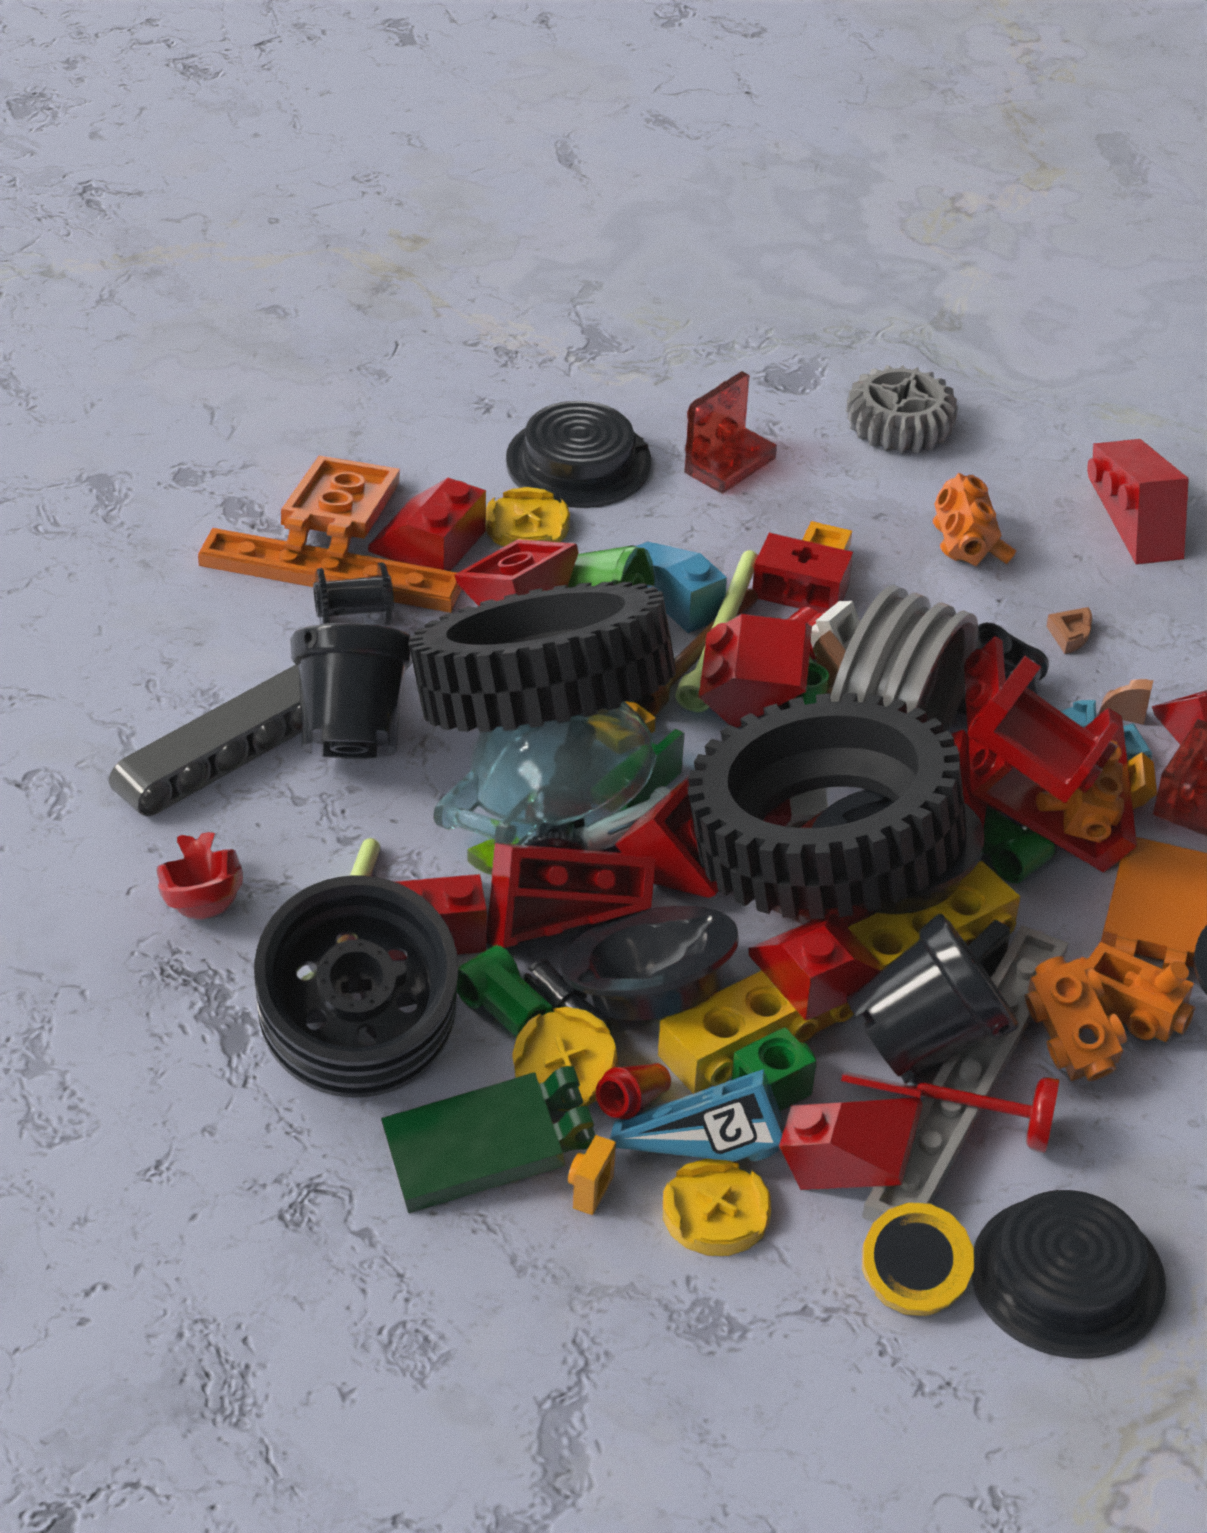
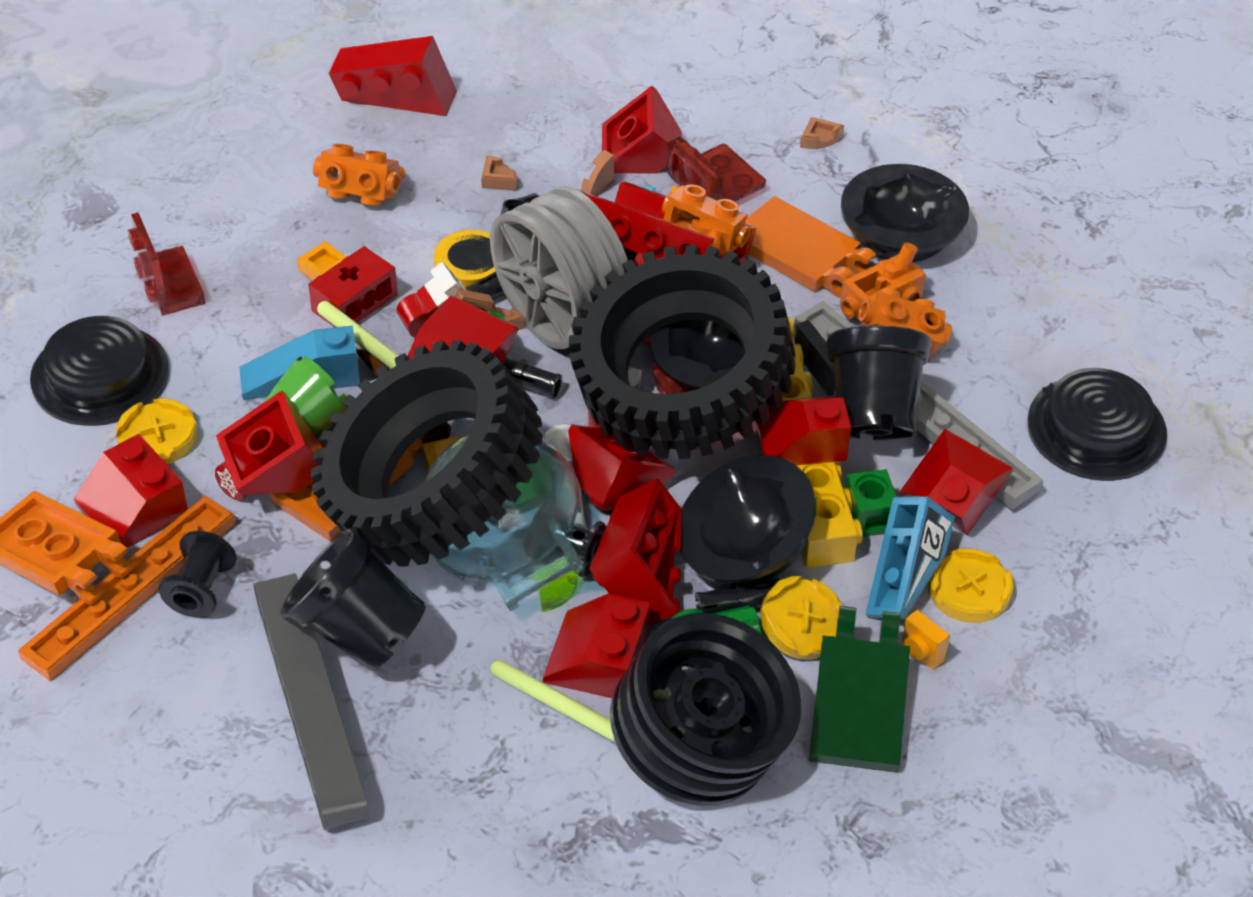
camera: 65 degrees left, 5 degrees up
(203, 880) = (493, 789): red hat -> none
(630, 1089) = (854, 587): red cone -> none
(901, 409) = (195, 158): light grey gear -> none
(917, 1259) = (1071, 490): tile -> none
(1039, 1113) = (975, 376): red piece -> none
(1042, 738) = (708, 209): red panel -> none

